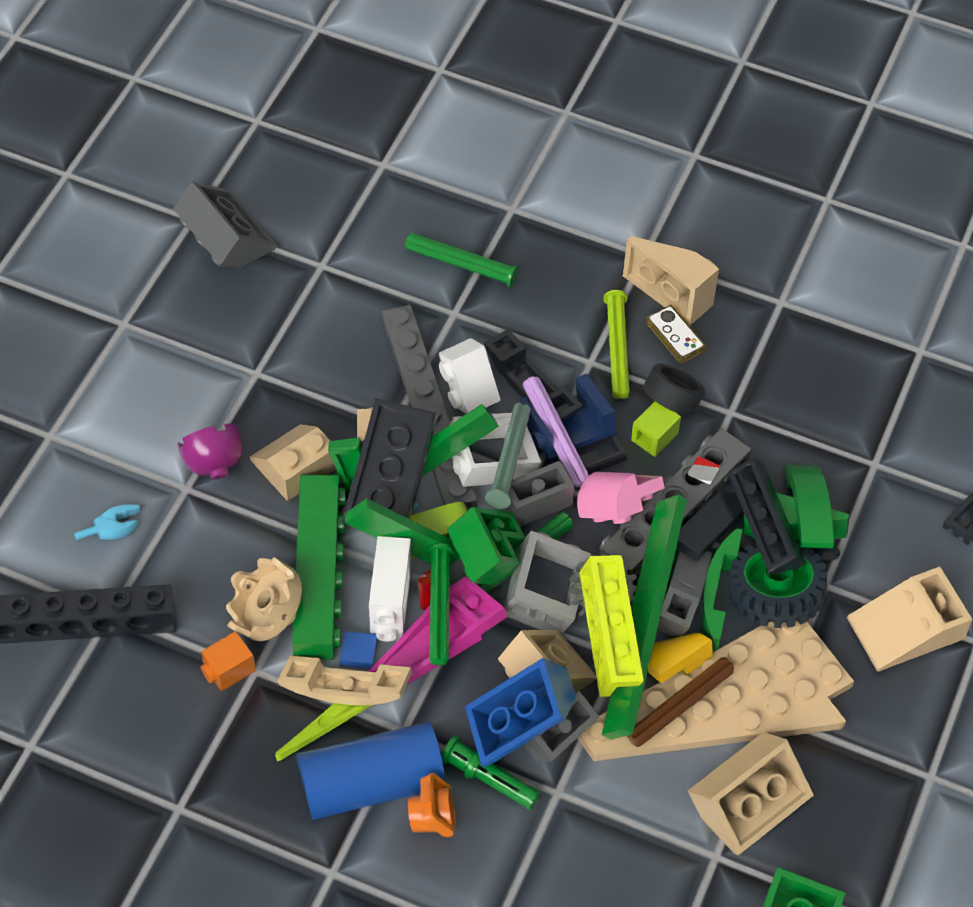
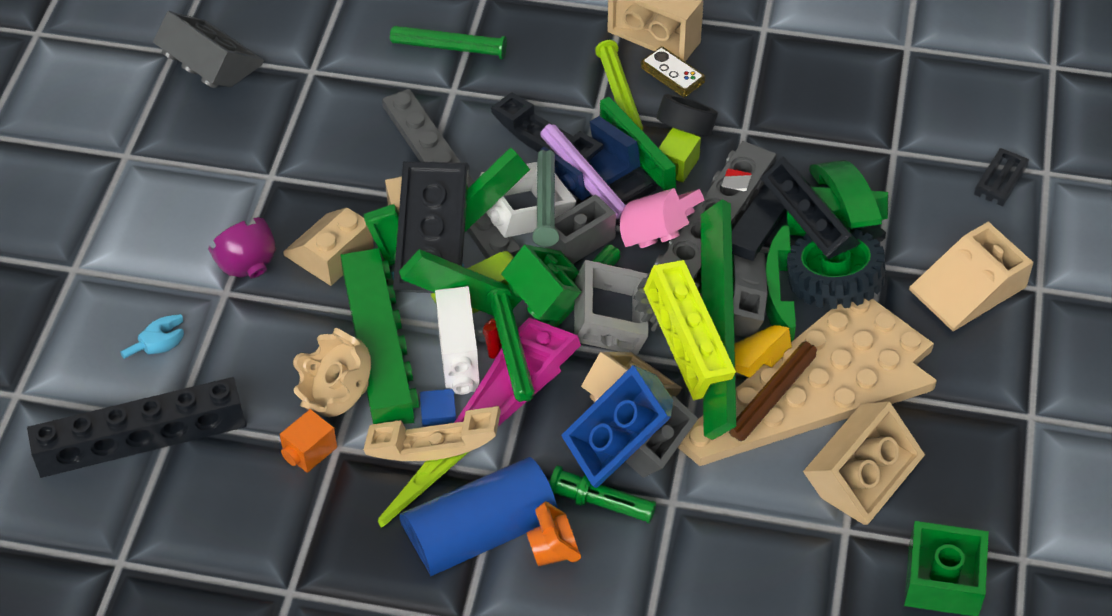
camera: 10 degrees left, 5 degrees down
(468, 376) = (482, 134): white brick -> none
(625, 424) = (651, 158): none -> green tile

